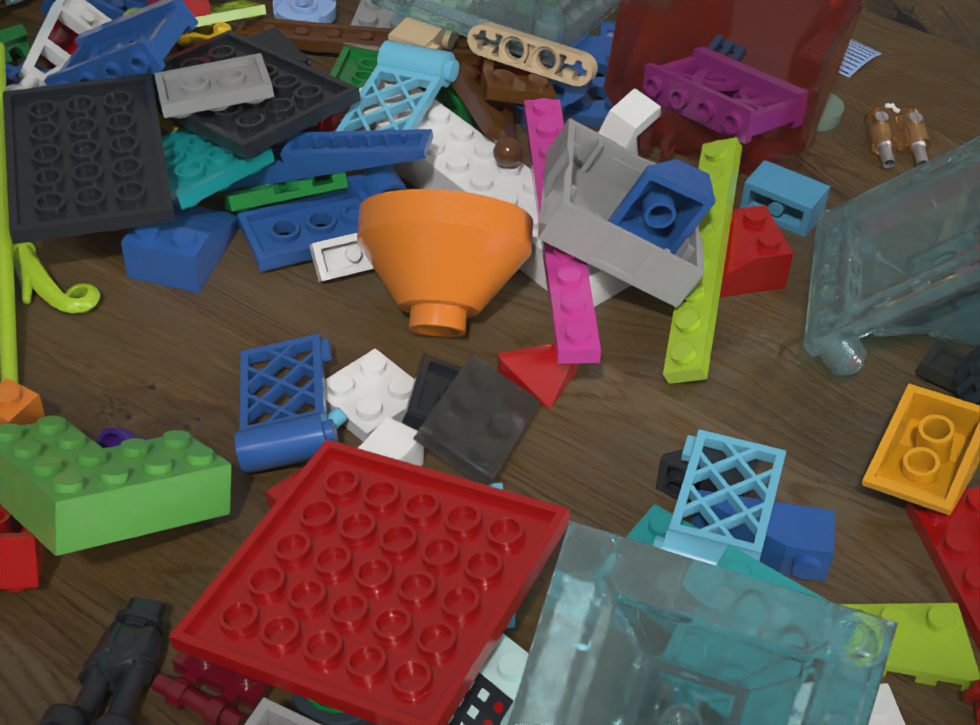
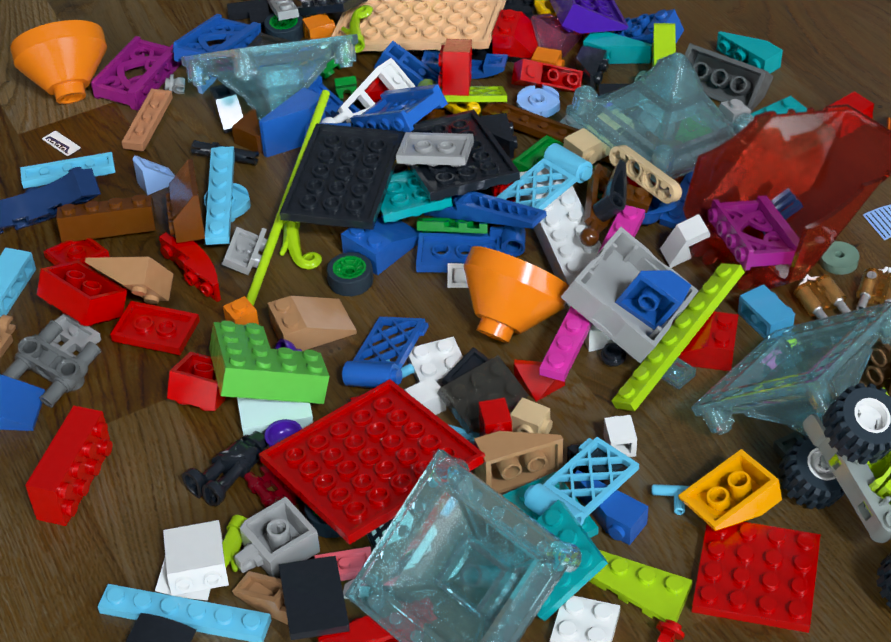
camera: 30 degrees right, 0 degrees up
(128, 389) = (309, 320): none -> medium nougat slope
(148, 563) = (260, 413): none -> light aqua piece
(158, 301) = (350, 274): none -> black wheel
(183, 584) = (280, 430): none -> dark purple piece
(509, 88) = (614, 195): none -> black piece
(537, 460) = (494, 416): none -> red brick
(571, 438) = (531, 417): none -> tan brick
(607, 489) = (518, 458): none -> medium nougat slope
(621, 308) = (613, 354): none -> black plate
(713, 412) = (621, 434): none -> white brick
(732, 309) = (679, 373): none -> clear light blue plate
(834, 161) = (820, 296): none -> clear orange piece
(844, 478) = (671, 490): none -> medium azure piece

